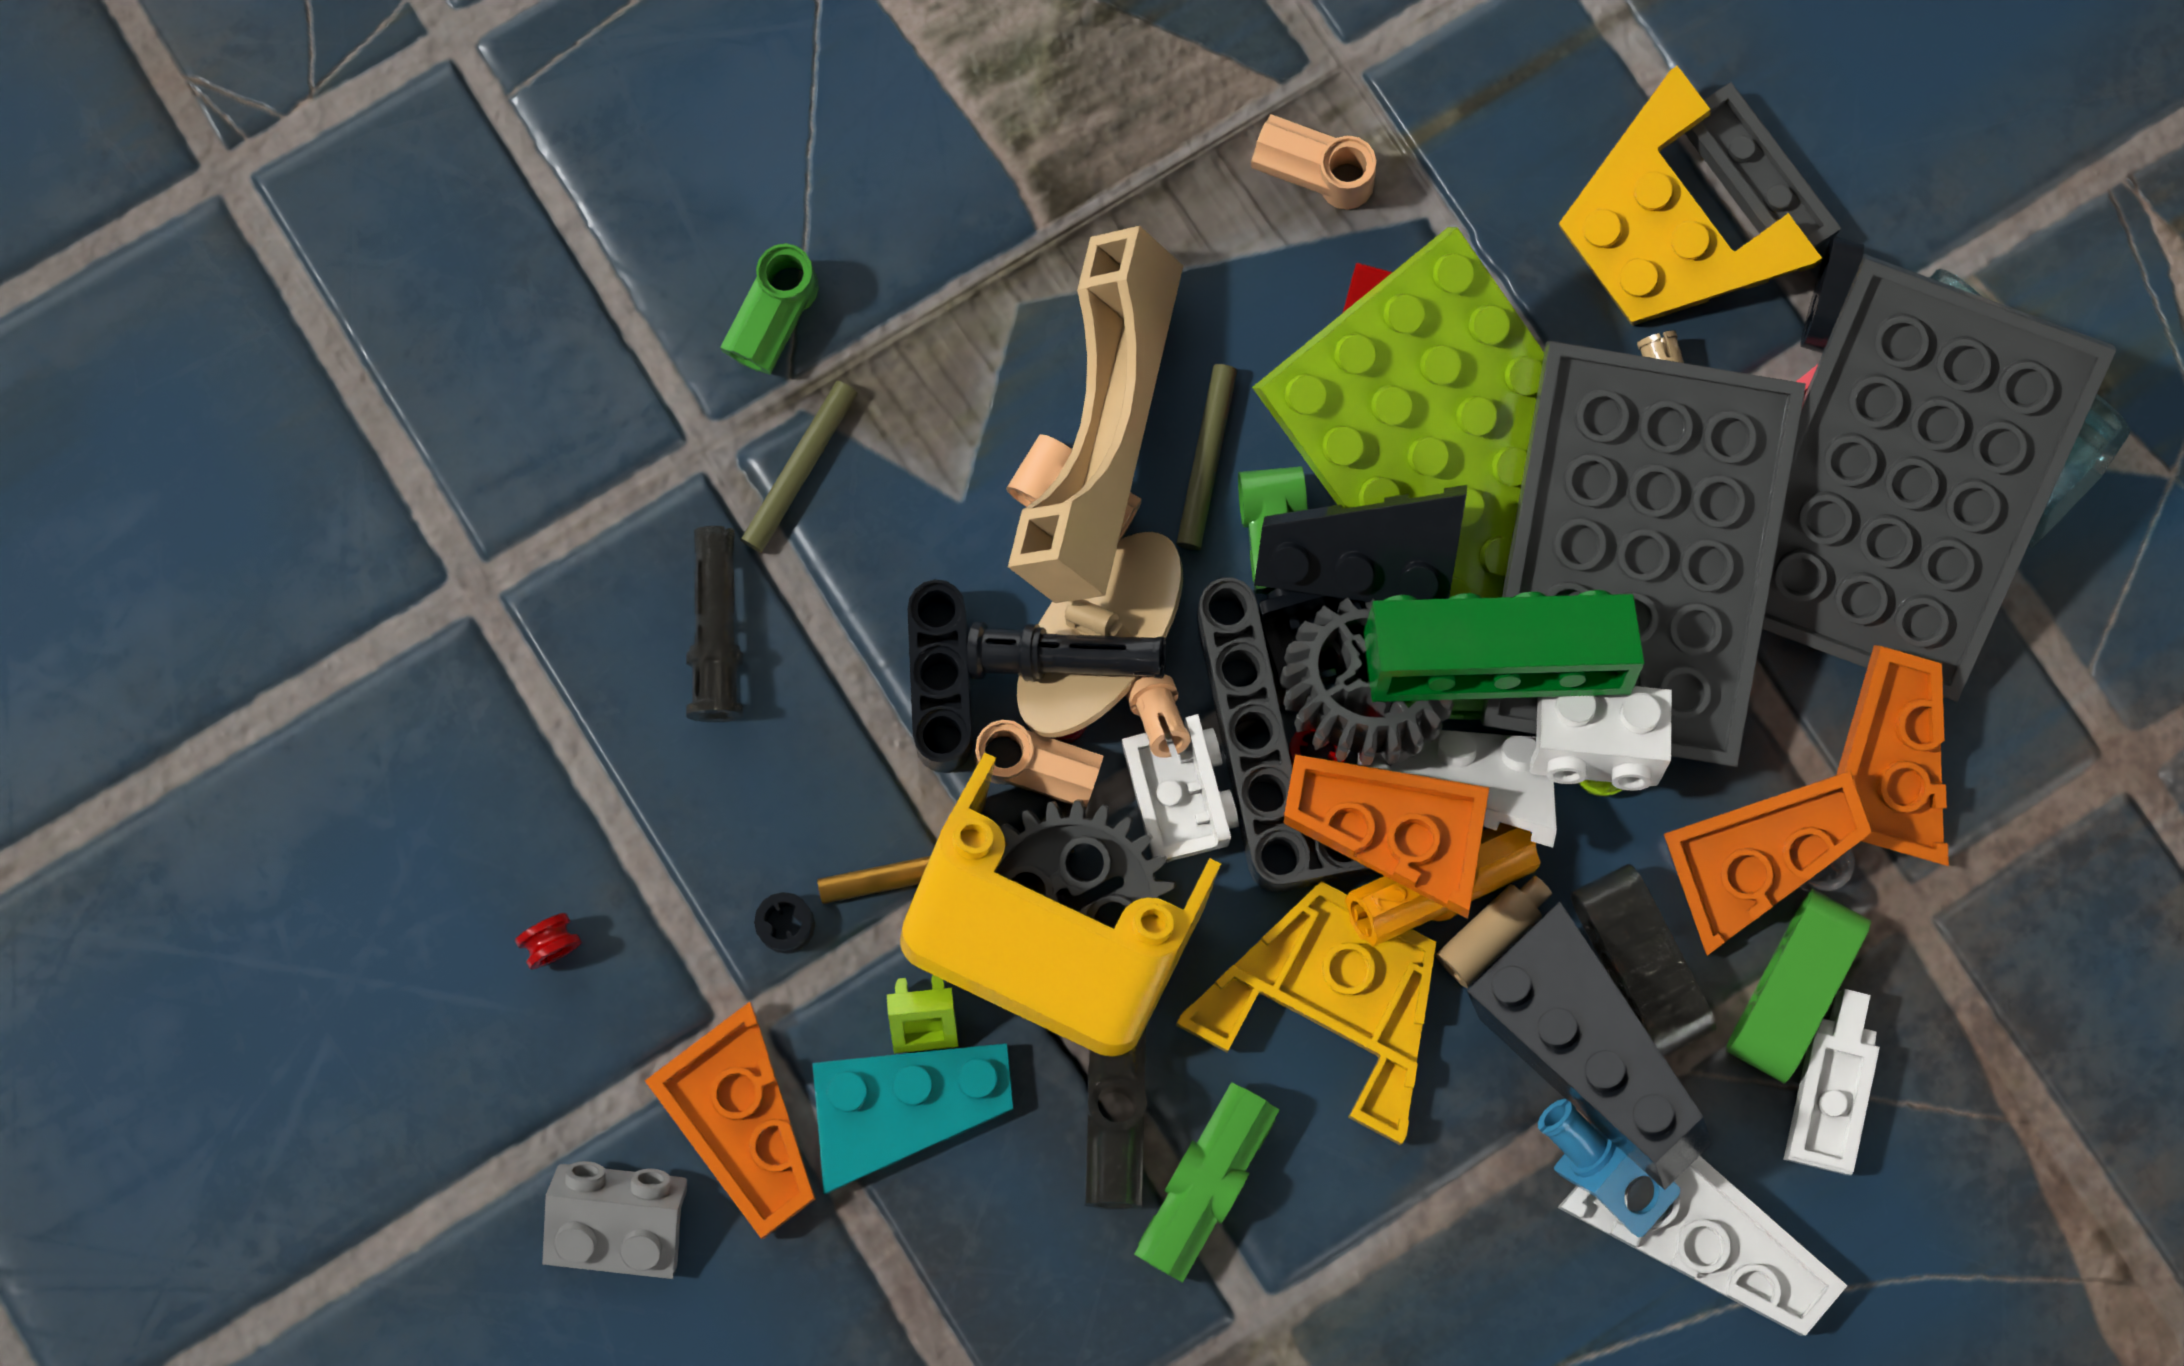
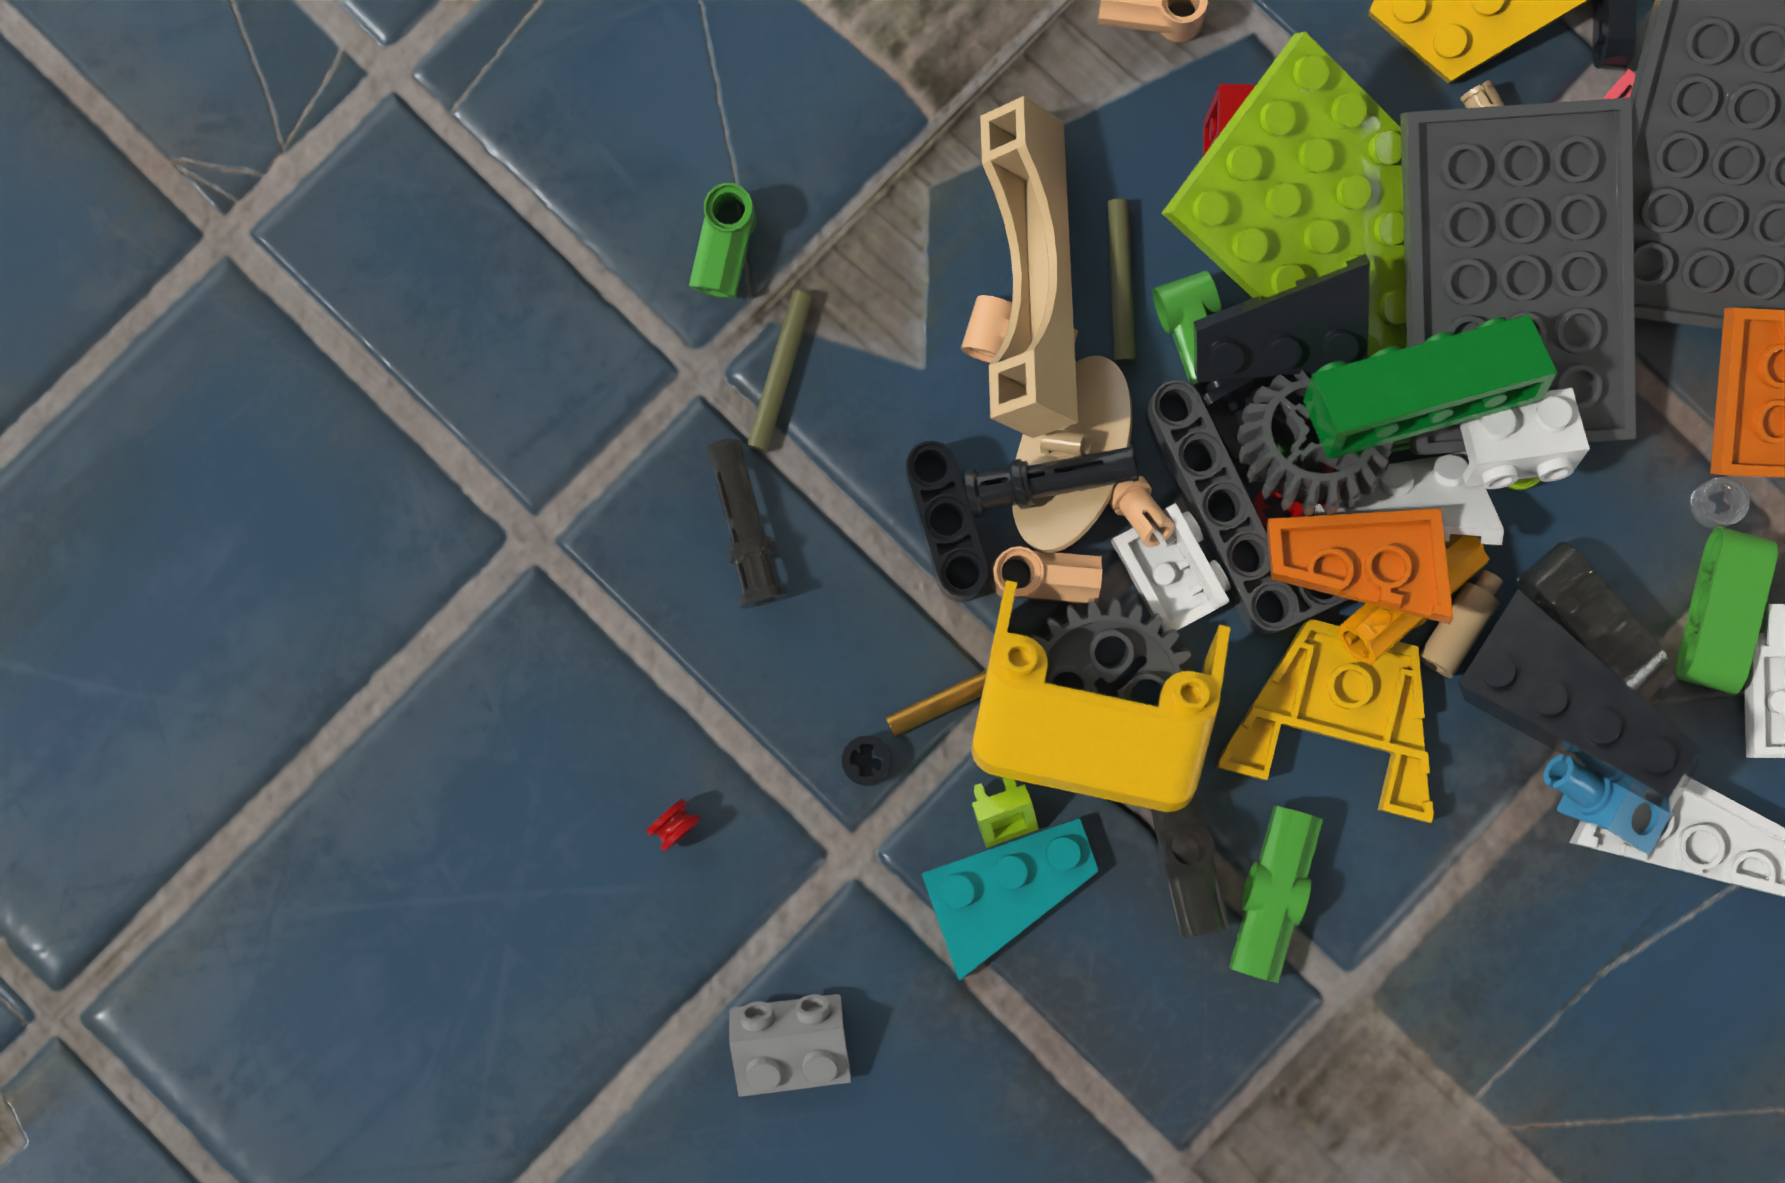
camera: 10 degrees left, 5 degrees up
(737, 1120) = (871, 938): orange wing -> none
(1762, 852) = (1672, 505): orange wing -> none

